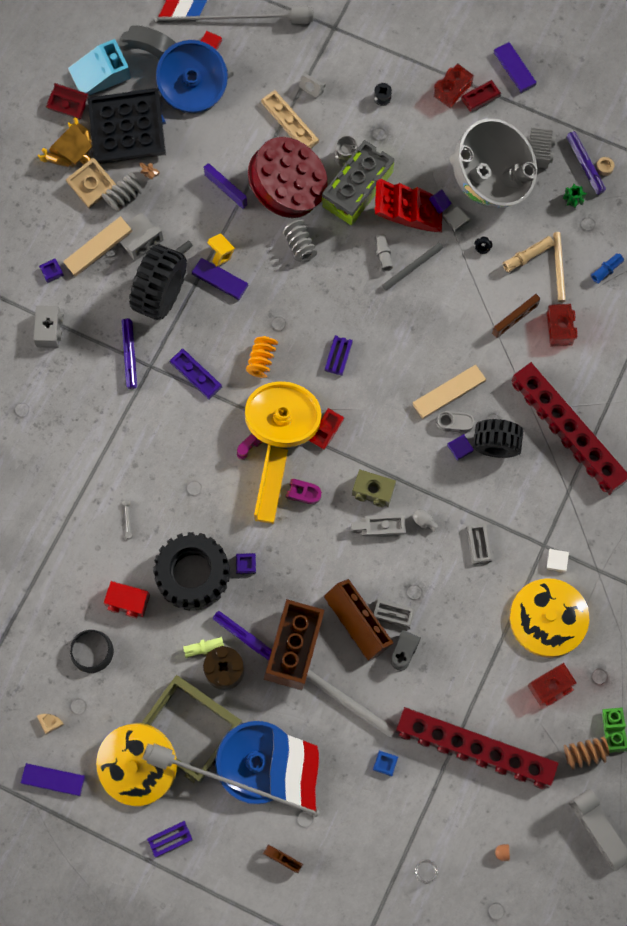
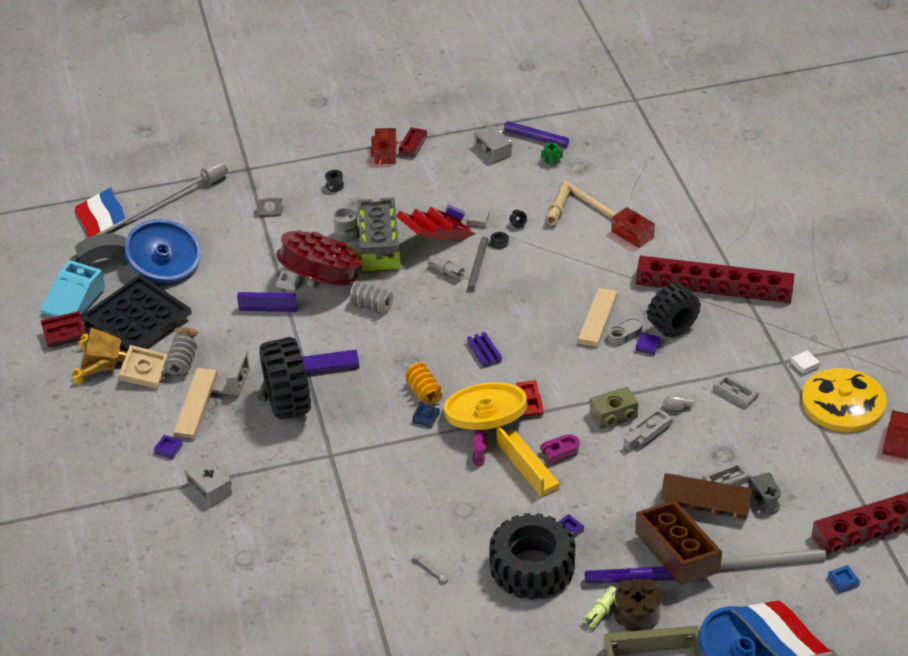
camera: 40 degrees left, 30 degrees down
(126, 599) = (496, 618): red brick -> none
(129, 353) = (303, 456): dark purple axle -> none
(195, 374) = (377, 434): dark purple tile -> none
(222, 248) = (309, 339): yellow panel -> none
(242, 384) = (426, 415): none -> dark blue tile
(289, 119) = (260, 236): tan tile -> none
(451, 254) = (499, 240): none -> black tile
(486, 160) = (468, 160): light grey piece -> none
(515, 67) = (418, 114): dark purple tile -> none
(516, 316) = (594, 241): reddish brown tile -> none
(604, 166) = (553, 127): tan tile -> none
(607, 268) = (625, 180): blue axle -> none

